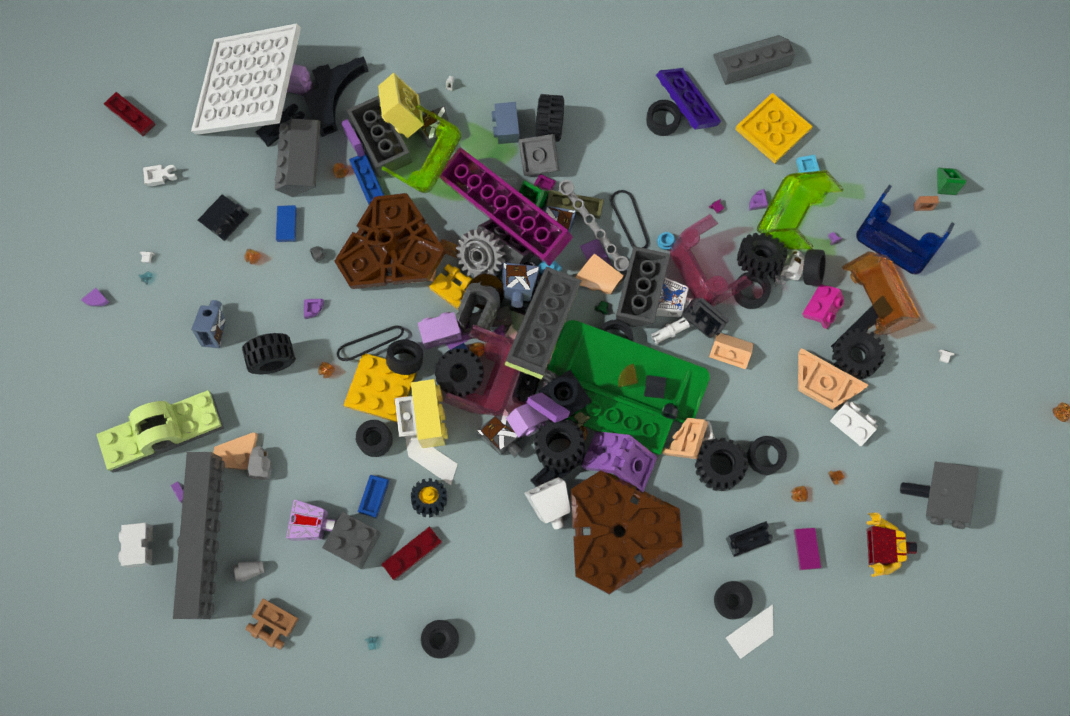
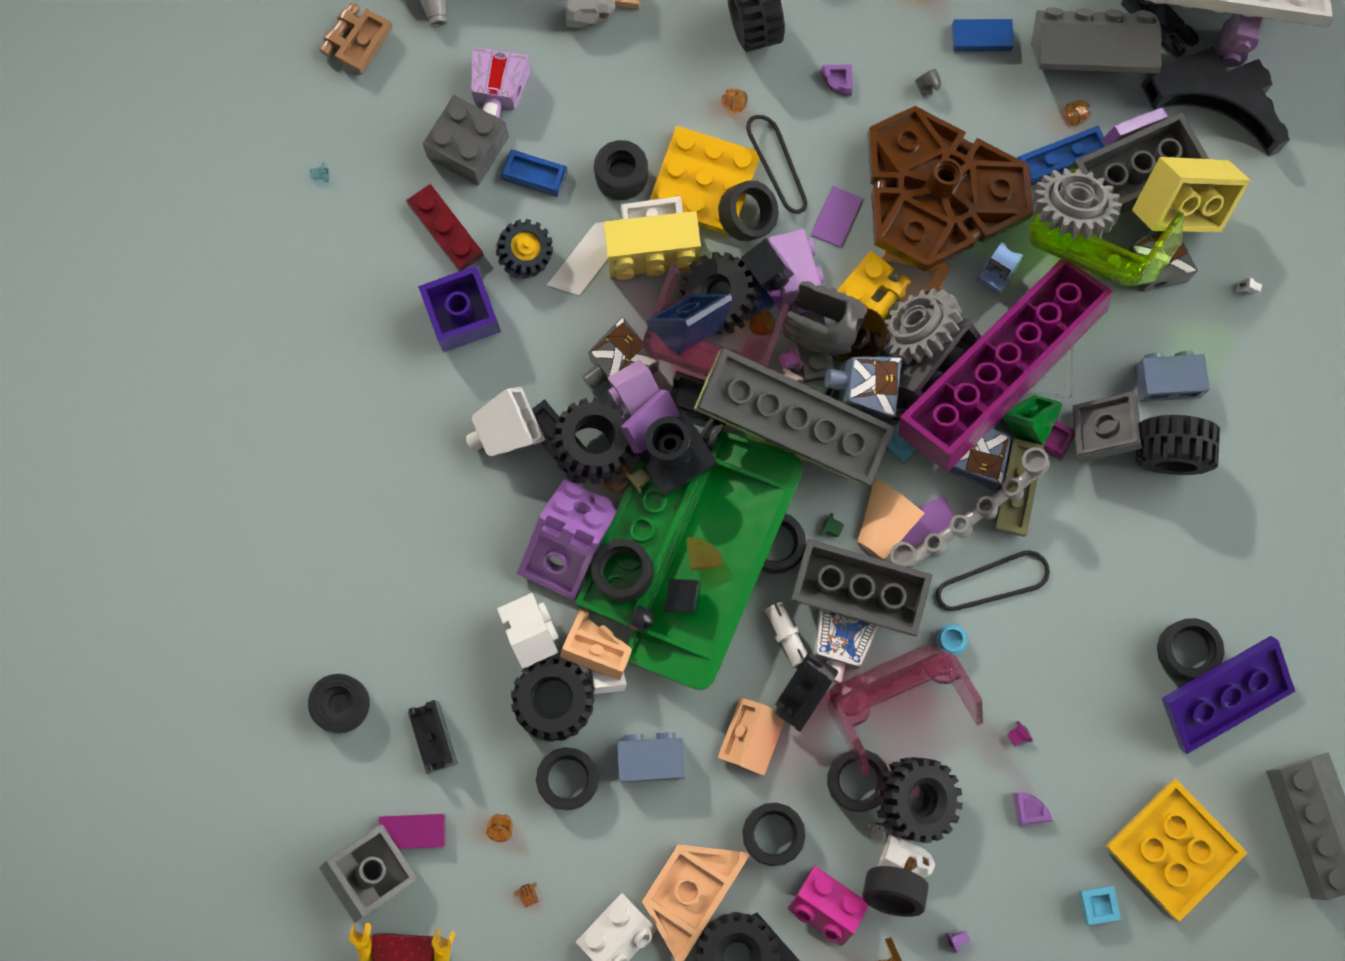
camera: 90 degrees right, 5 degrees up
(404, 308) = (836, 216): none -> medium lavender sticker
(409, 162) = (1076, 203): none -> light grey gear
(429, 633) = (315, 248): black tyre -> none
(441, 212) = (999, 269): none -> light blue leg
(445, 340) = (768, 266): none -> black brick
(471, 536) = (459, 309): none -> dark purple brick
(482, 384) = (690, 320): none -> dark blue slope
(644, 409) = (604, 554): none -> black tyre
(649, 527) = (415, 505): reddish brown plate -> none
(677, 481) = (528, 630): none -> white brick
(750, 406) = (650, 759): none -> sand blue brick
(752, 633) = (290, 732): white sticker -> none
(791, 204) = (1014, 863): clear neon green windscreen -> none
(794, 324) = (797, 827): none -> black tyre
(837, 572) = (368, 873): none -> dark grey slope

